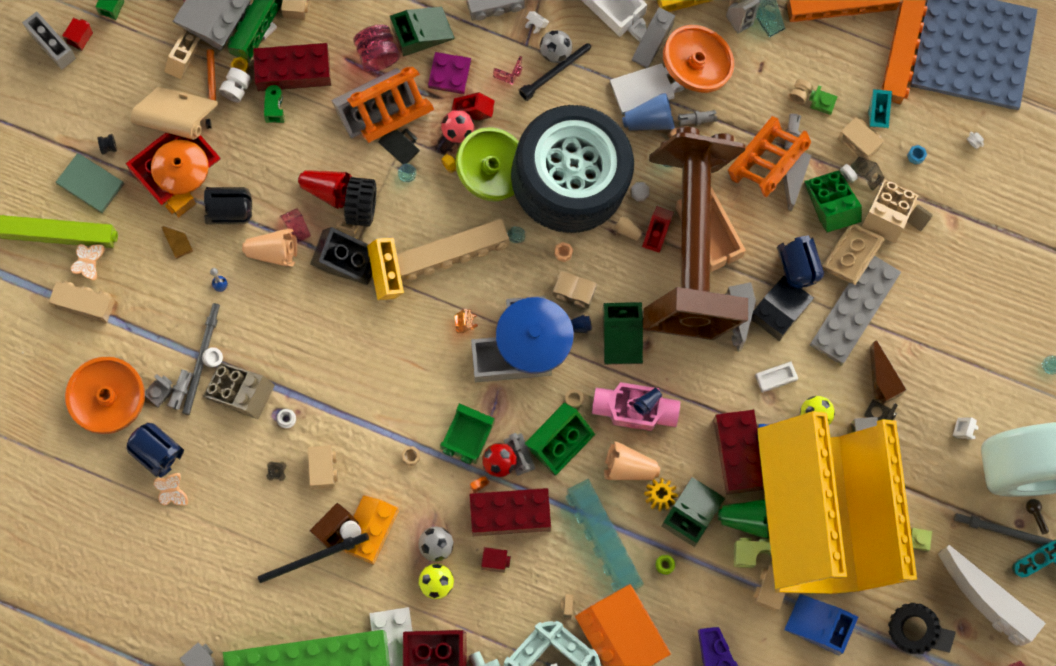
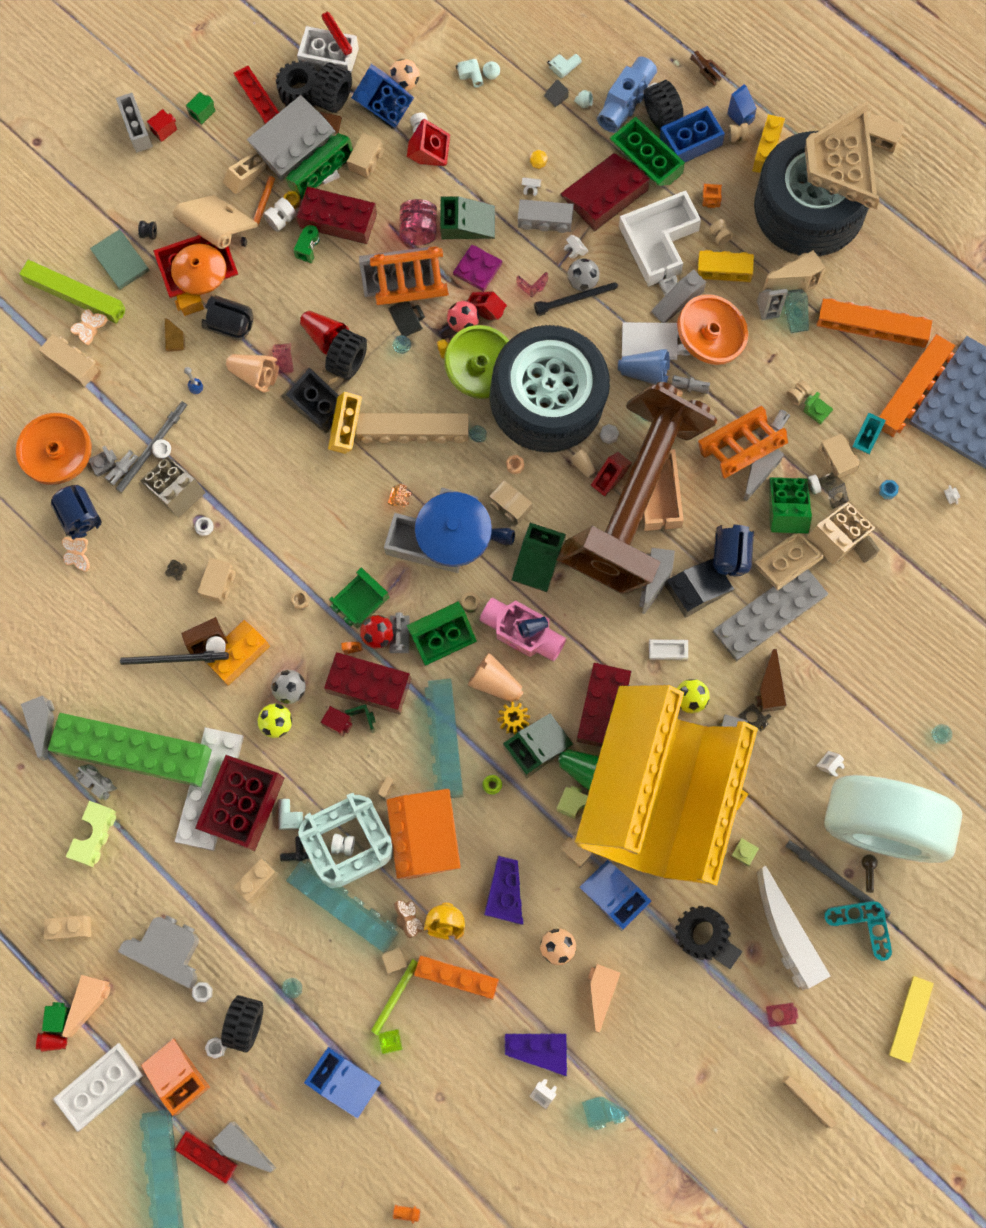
camera: 30 degrees right, 0 degrees up
(523, 542) = (361, 709): none -> dark green bracket

